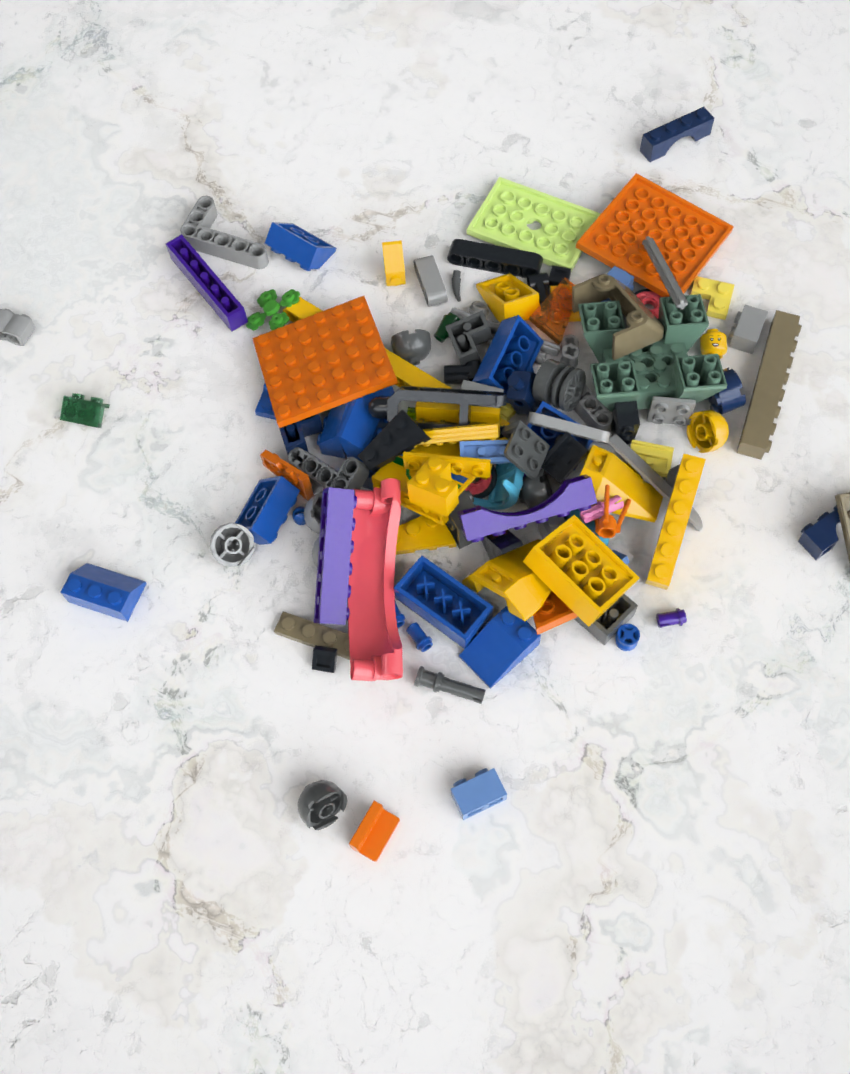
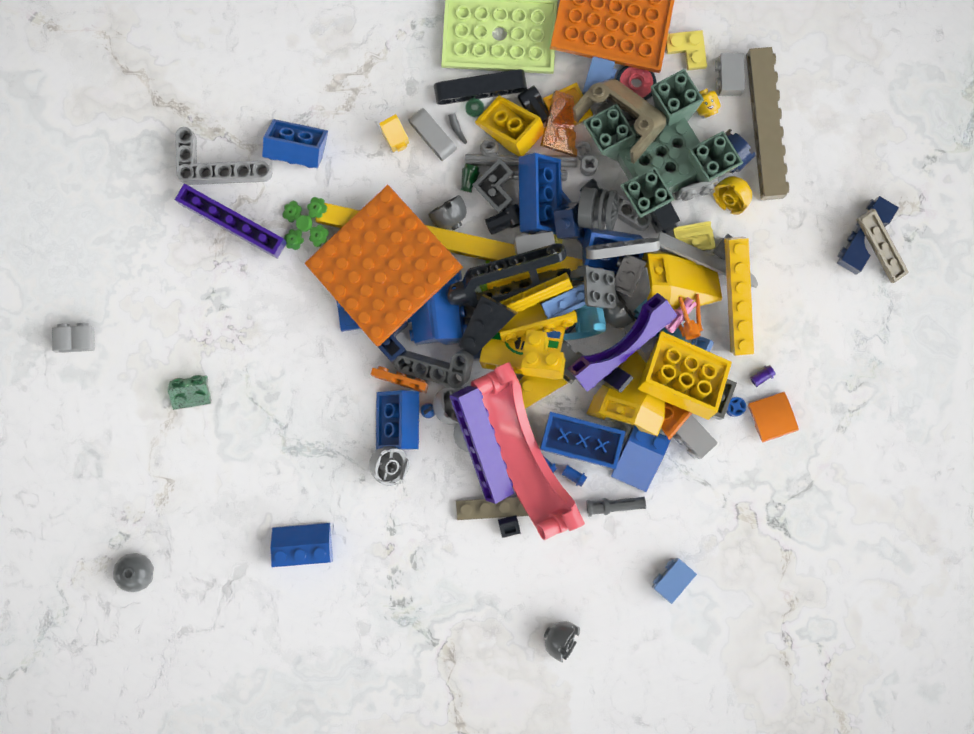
camera: 30 degrees left, 20 degrees up
(374, 832) = (609, 641): orange panel -> none
(481, 274) = (474, 113): none -> clear green plate
(558, 274) = (546, 83): black plate -> none
(568, 650) = (695, 438): none -> light grey brick
(665, 273) = (644, 56): light grey axle -> none
(666, 665) = (773, 417): none -> orange slope

